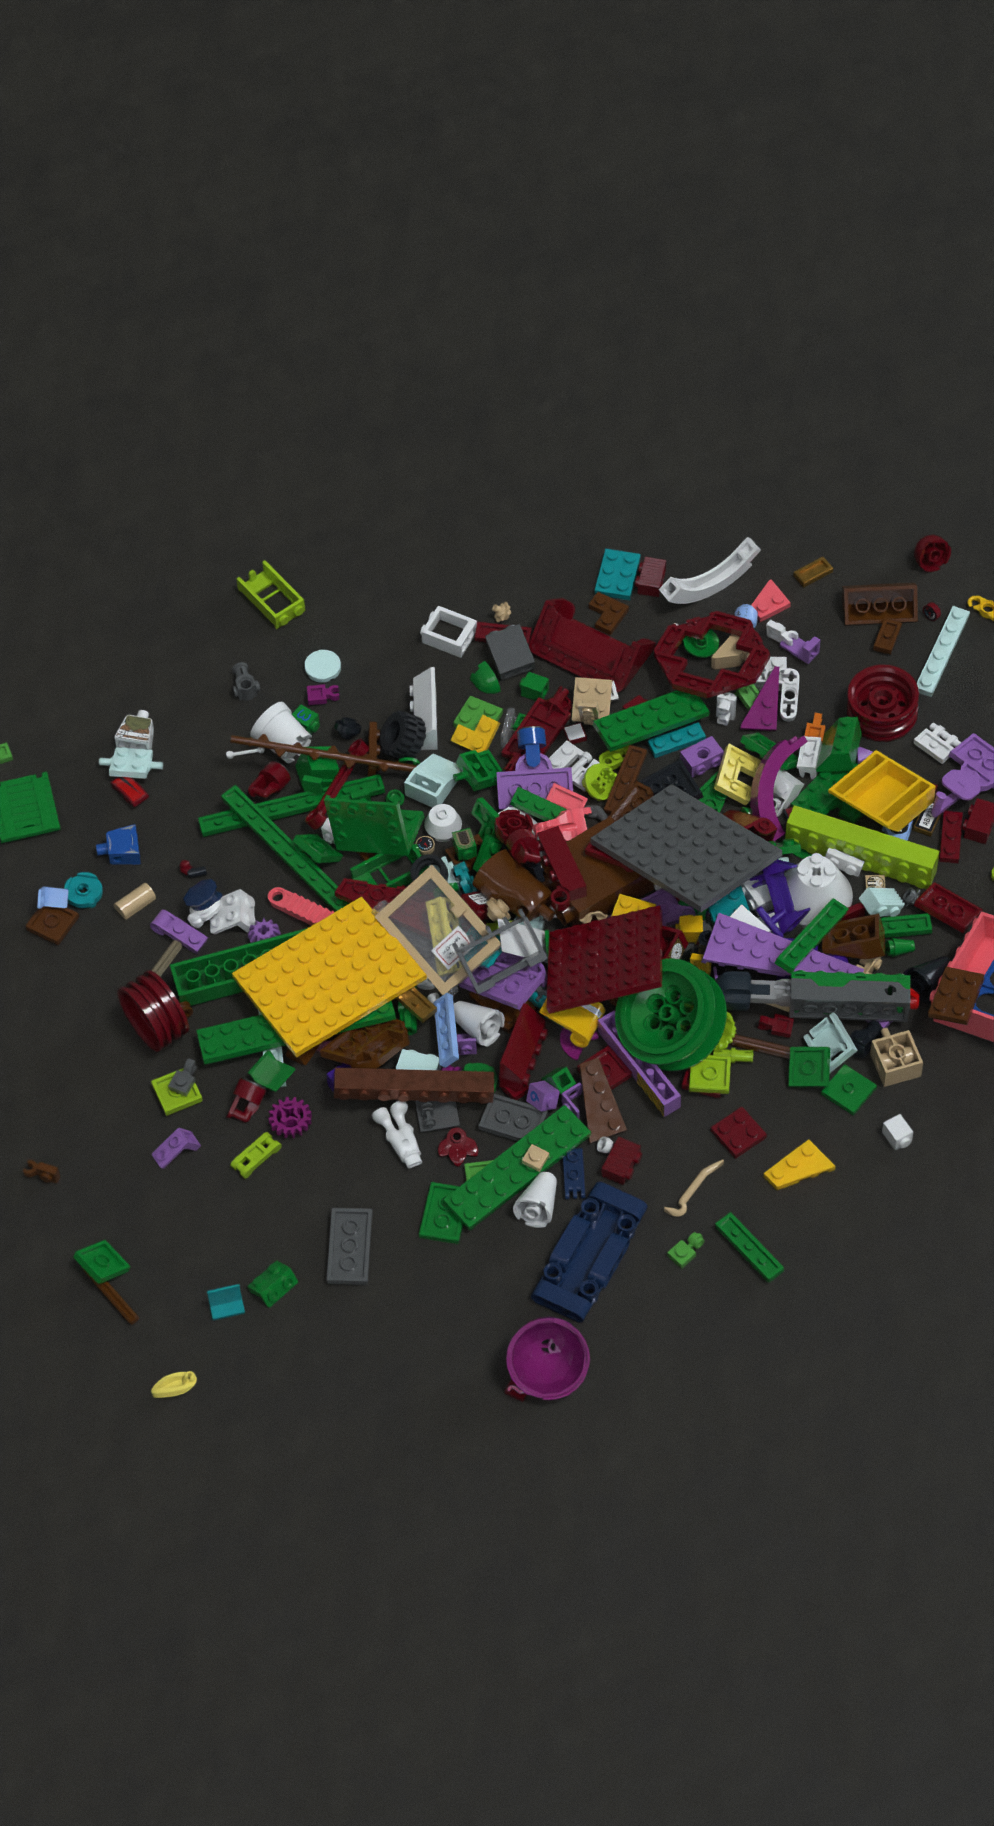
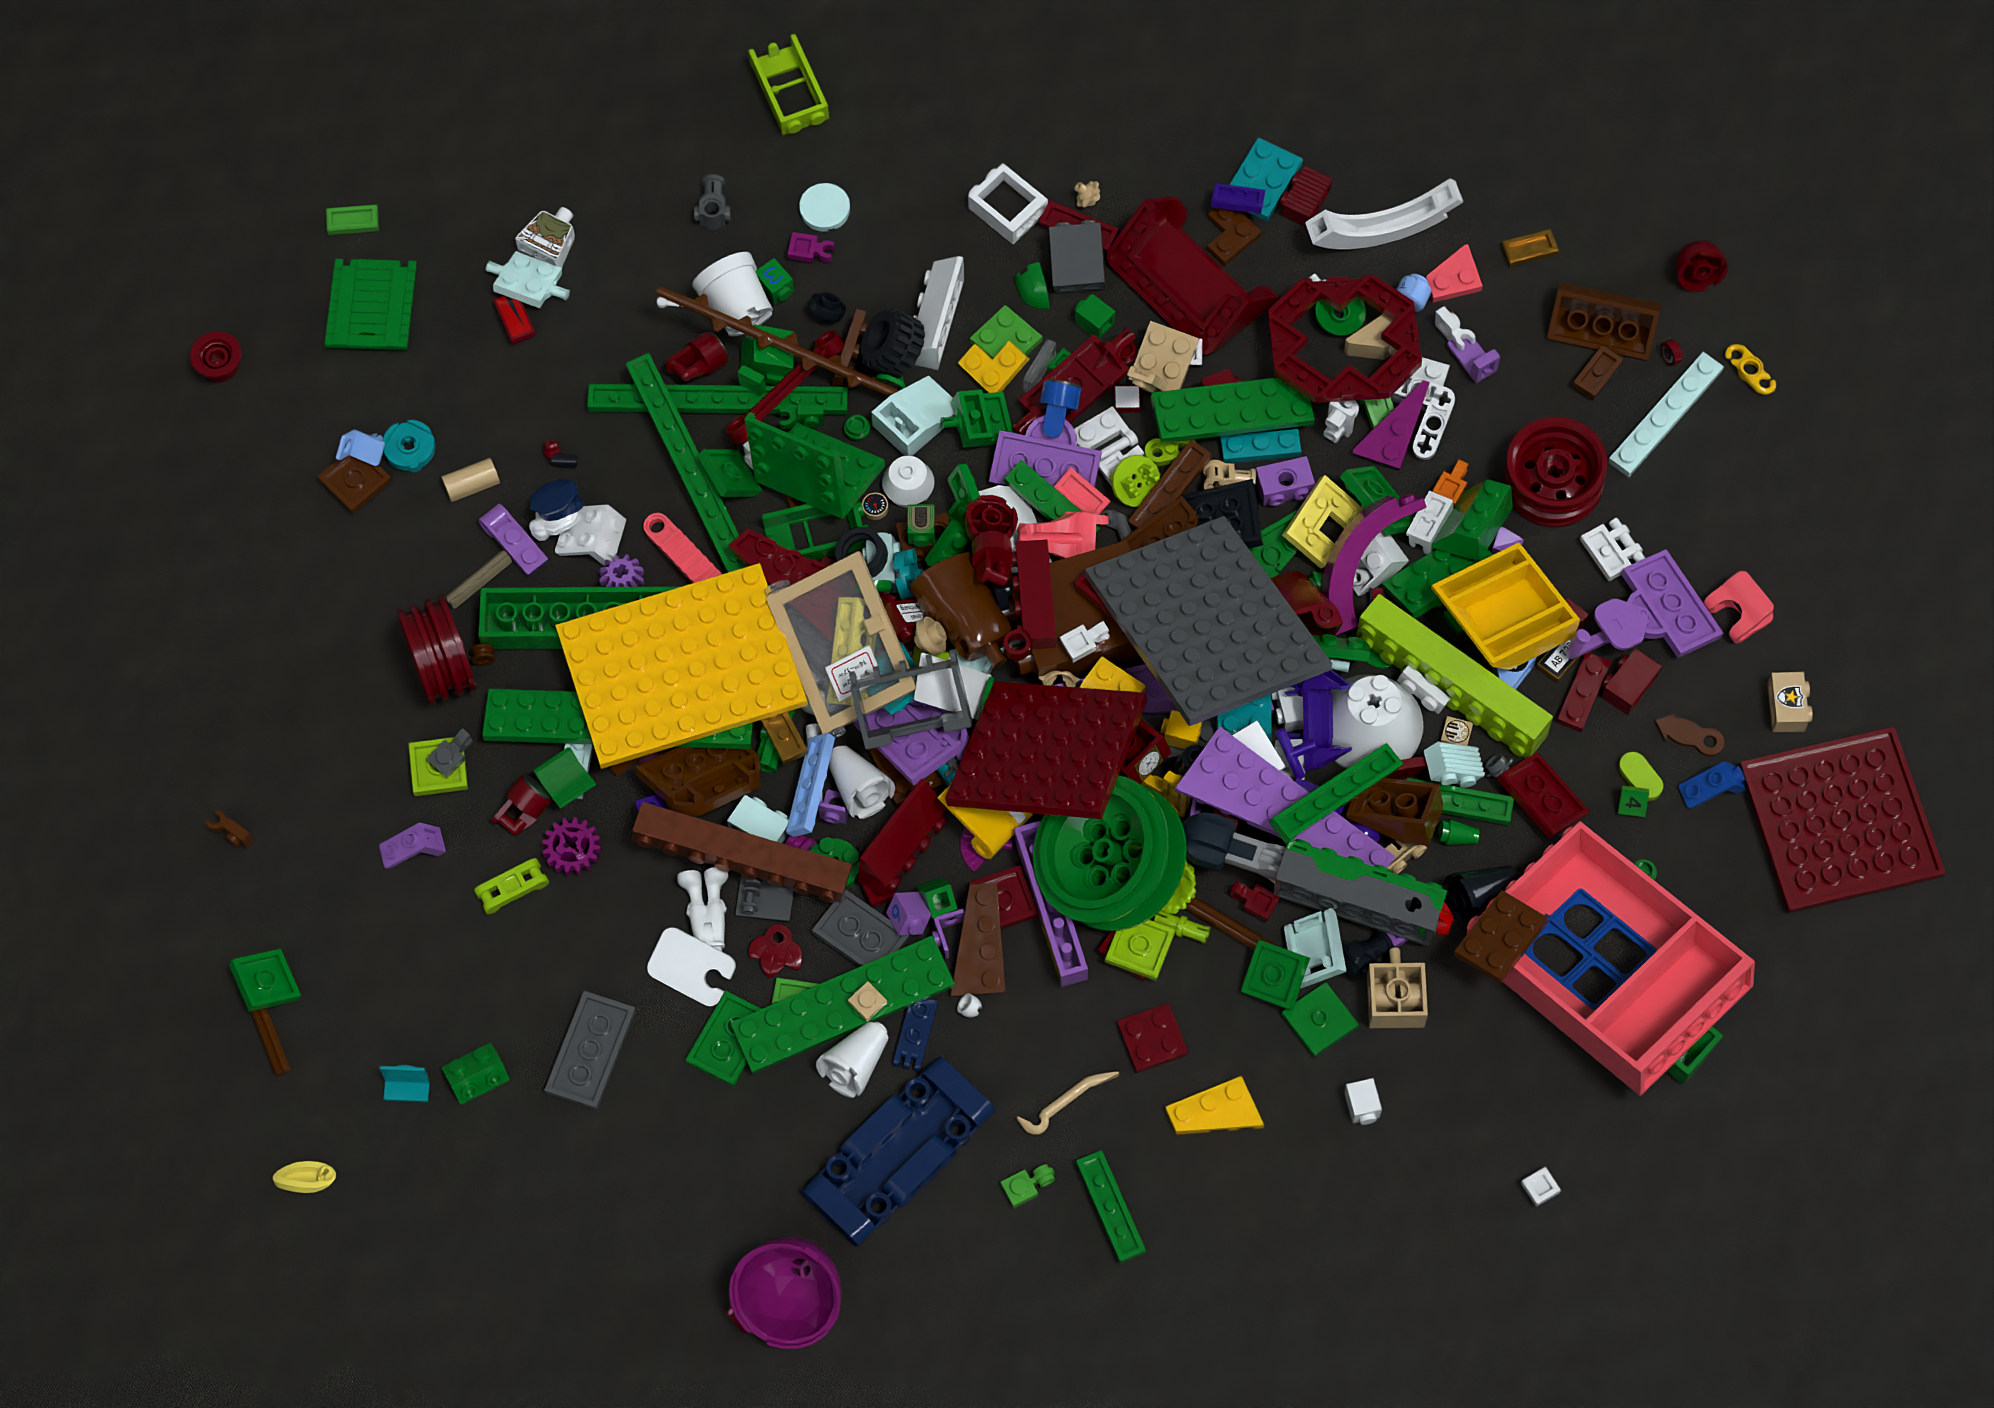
camera: 15 degrees right, 10 degrees up
(121, 846) = (477, 396): blue torso -> none
(396, 1171) = (684, 962): none -> white piece
(604, 886) = (1082, 642): none -> white plate
(606, 587) = (1238, 198): none -> dark purple plate
(621, 1161) = (983, 1035): dark red brick -> none
(660, 762) = (1225, 475): none -> tan connector

